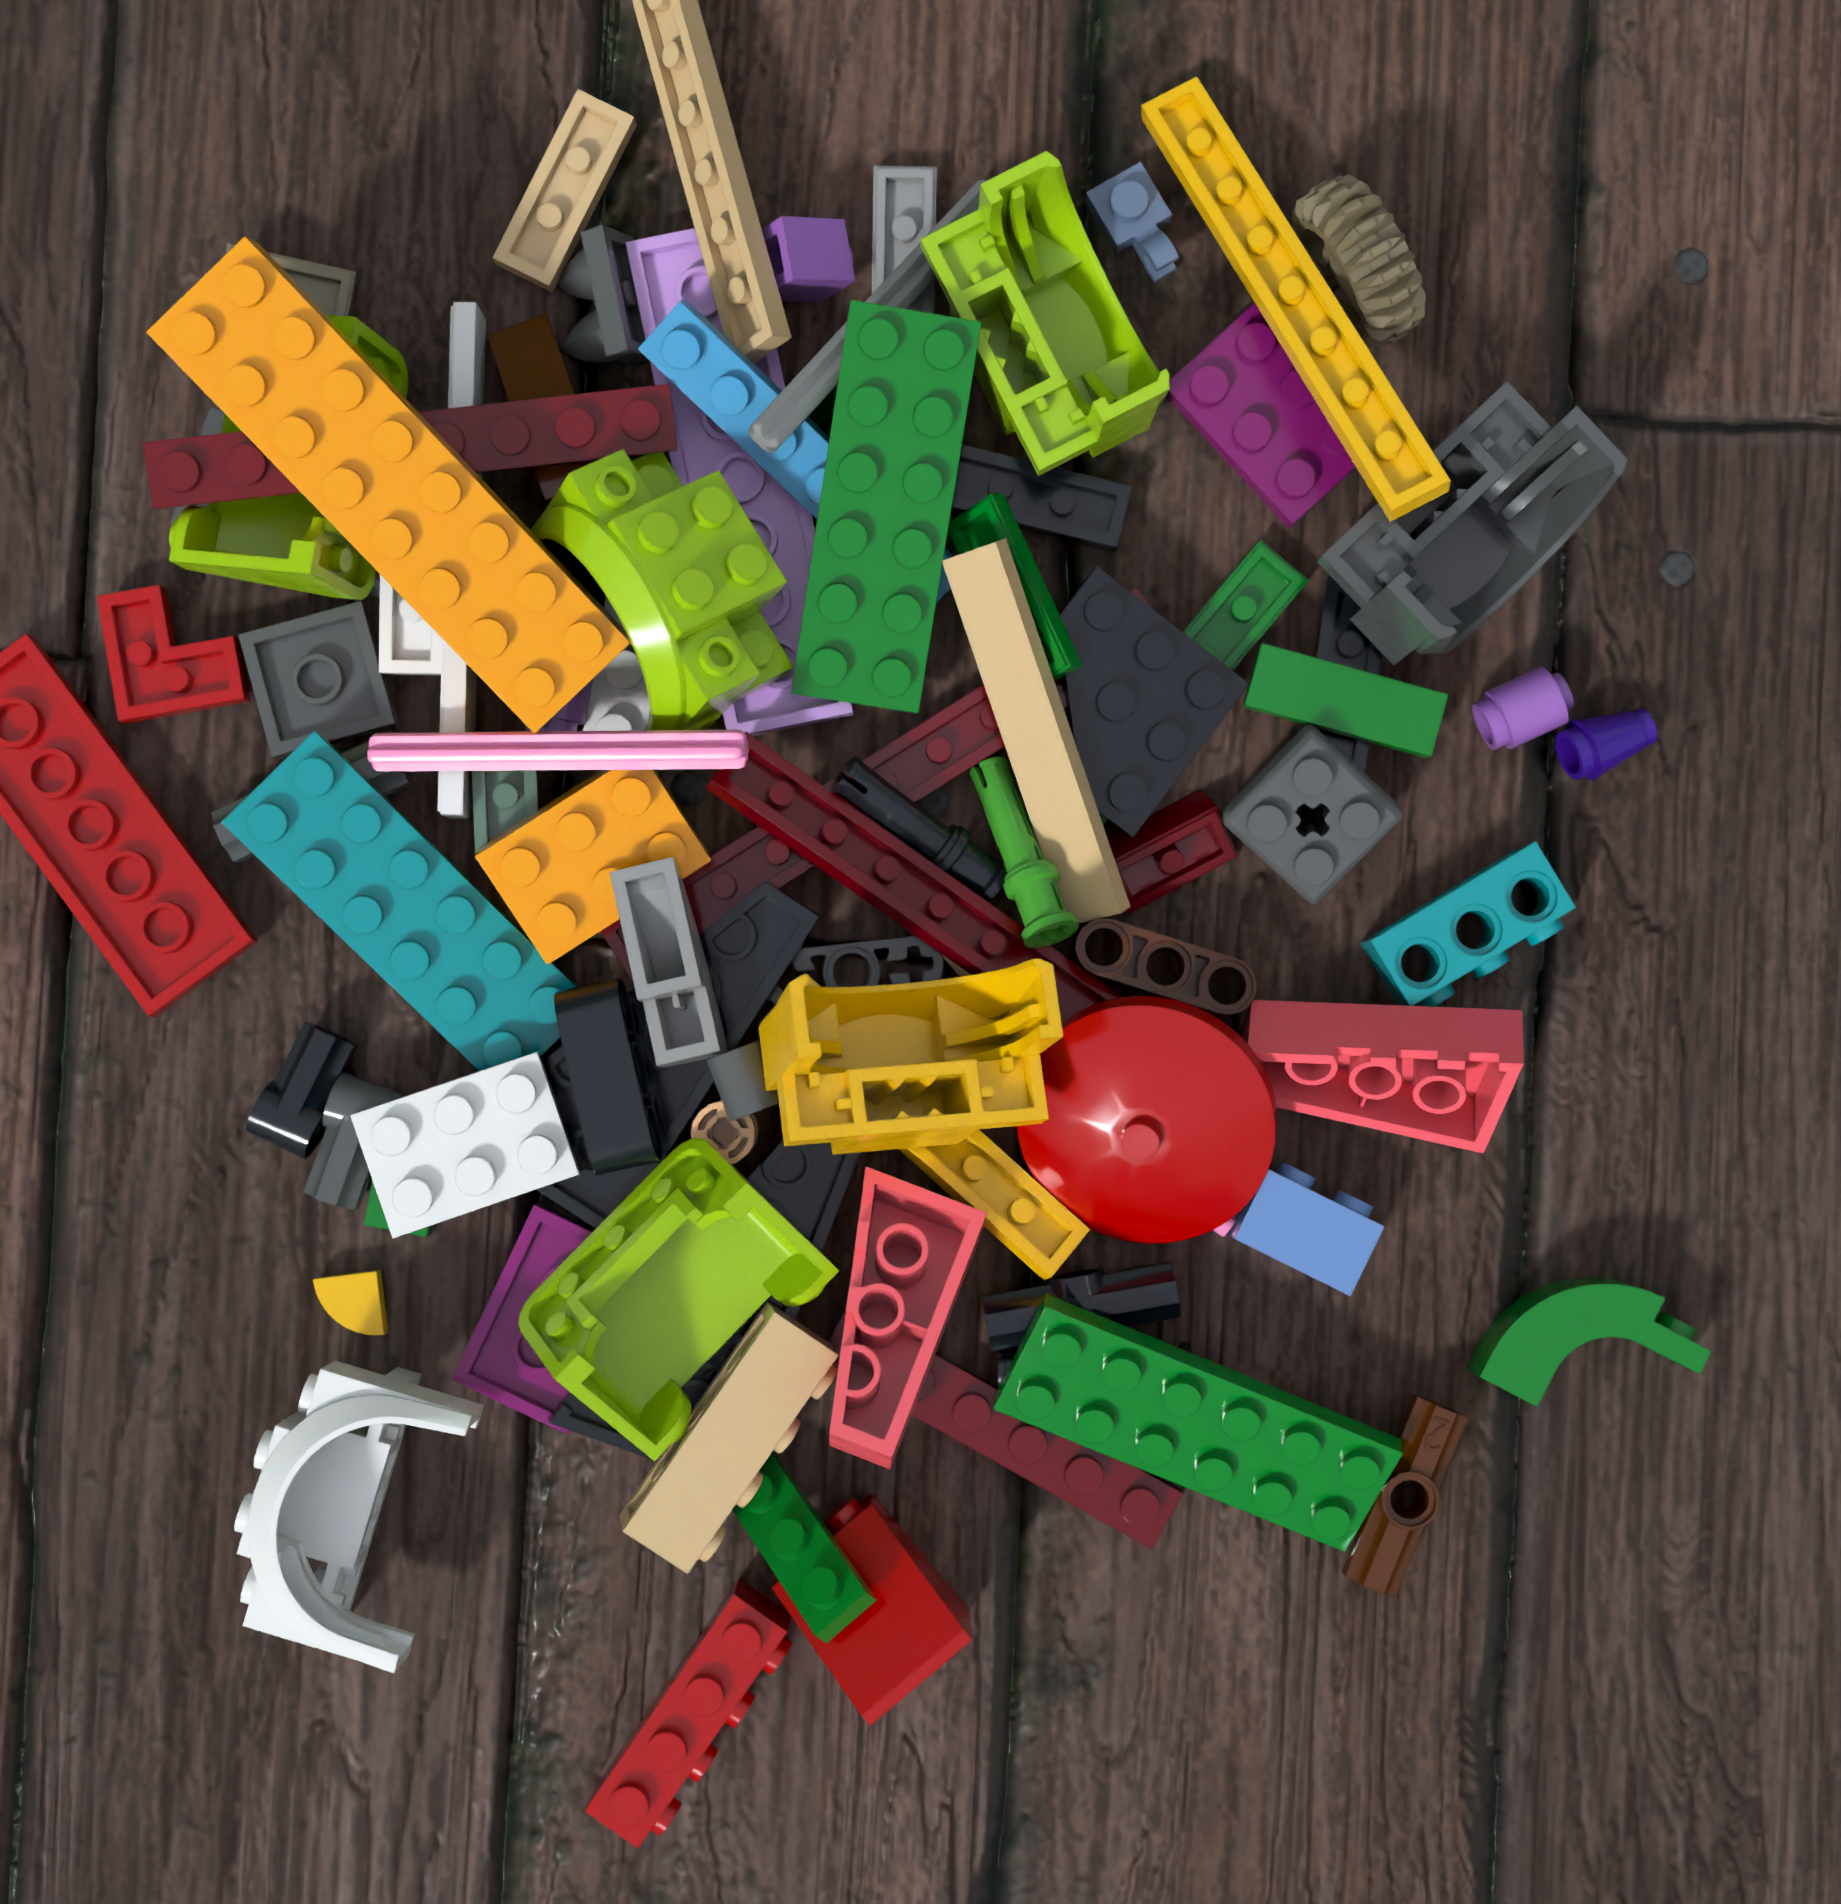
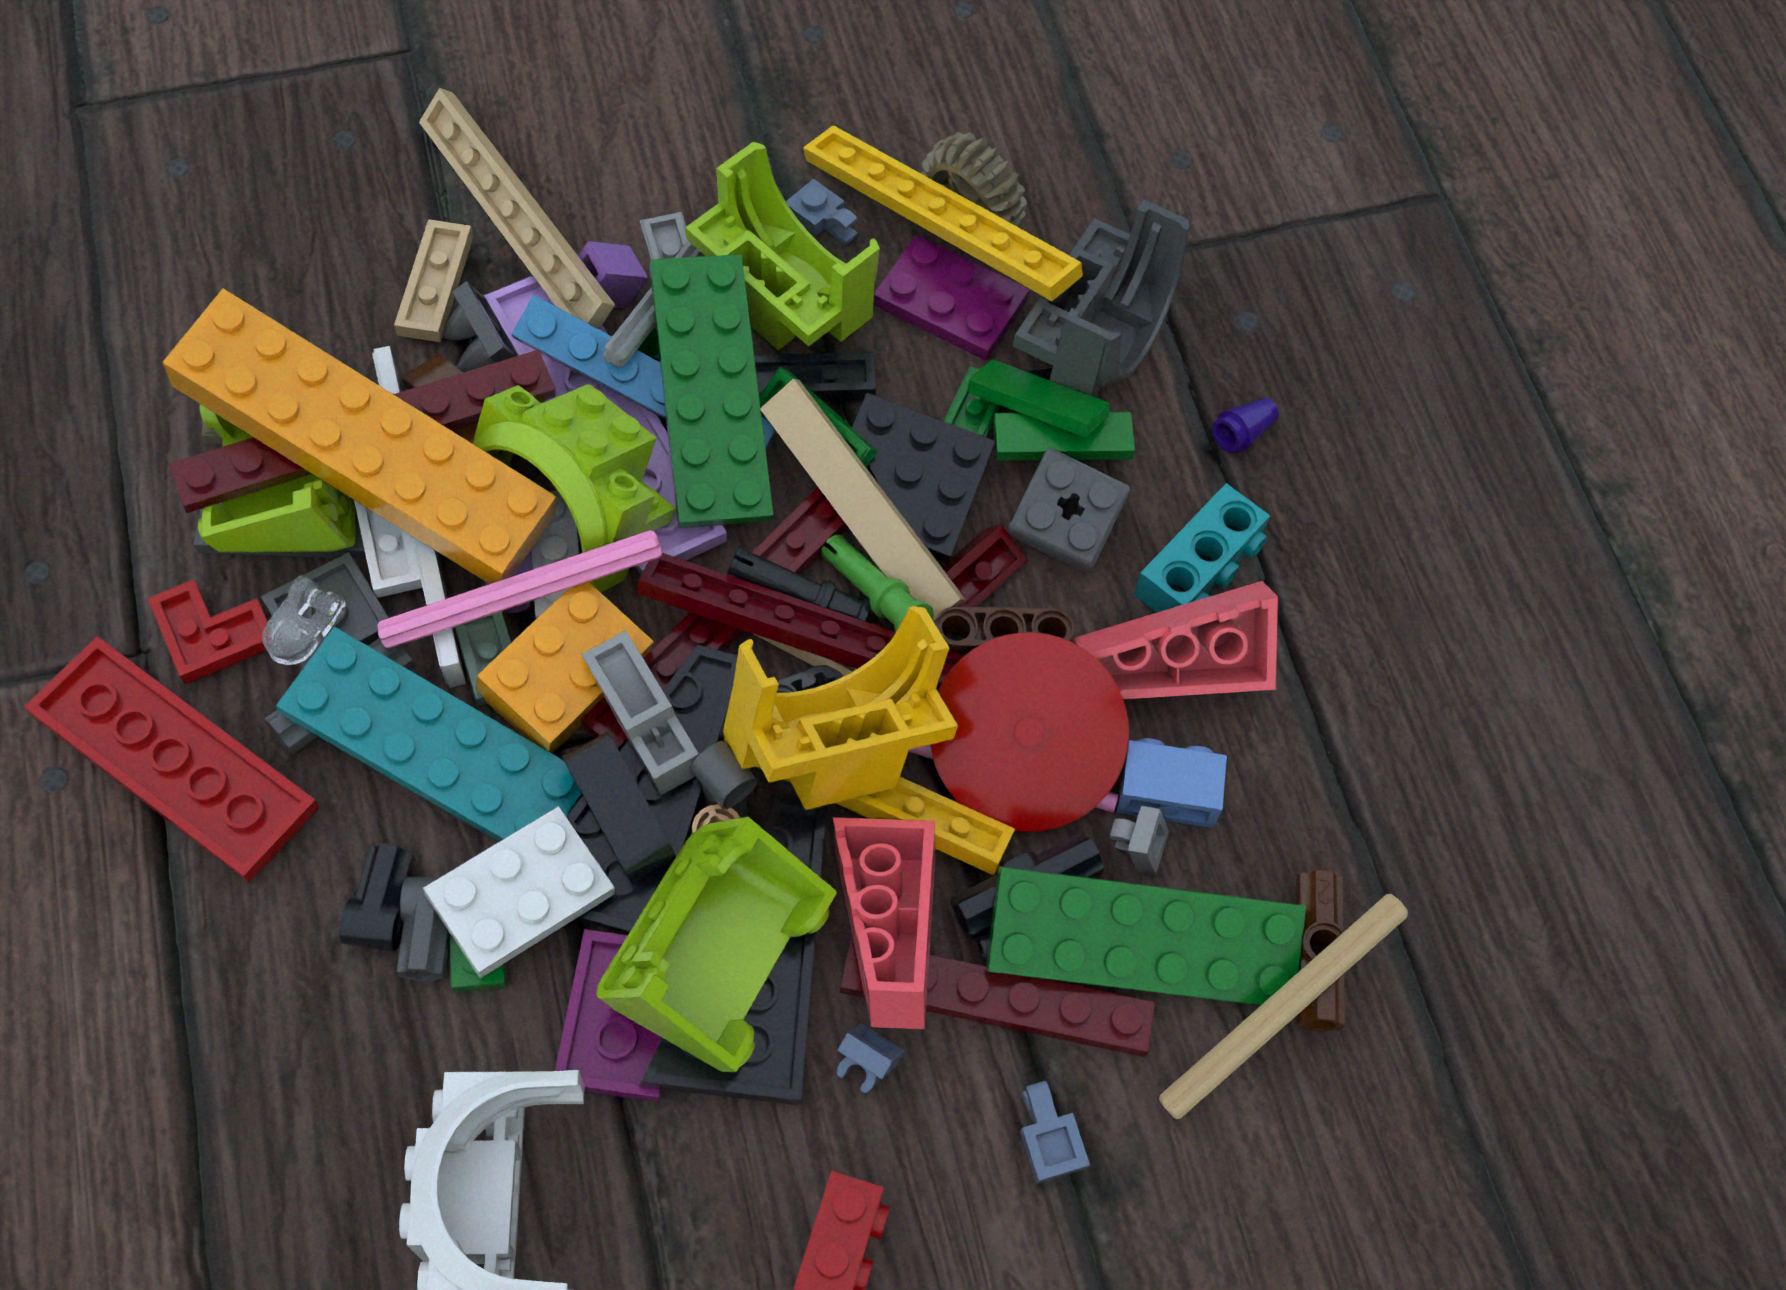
camera: 20 degrees left, 25 degrees down
(262, 710) = (292, 637): none -> clear plate
(355, 1300) = (456, 1049): yellow tile -> none
(729, 1438) = (789, 1050): tan brick -> none
(803, 1553) = (872, 1119): green plate -> none
(823, 1464) = (870, 1051): none -> sand blue tile
(906, 1631) = (943, 1152): red slope -> none
(1003, 1619) = (1052, 1141): none -> sand blue plate
(1243, 1292) = (1142, 839): none -> light grey tile
(1329, 639) = (1038, 398): none -> green tile
(1331, 1560) = (1283, 1006): none -> tan axle
(1523, 708) = (1183, 417): medium lavender brick -> none
(1552, 1321) = (1406, 775): green arch -> none

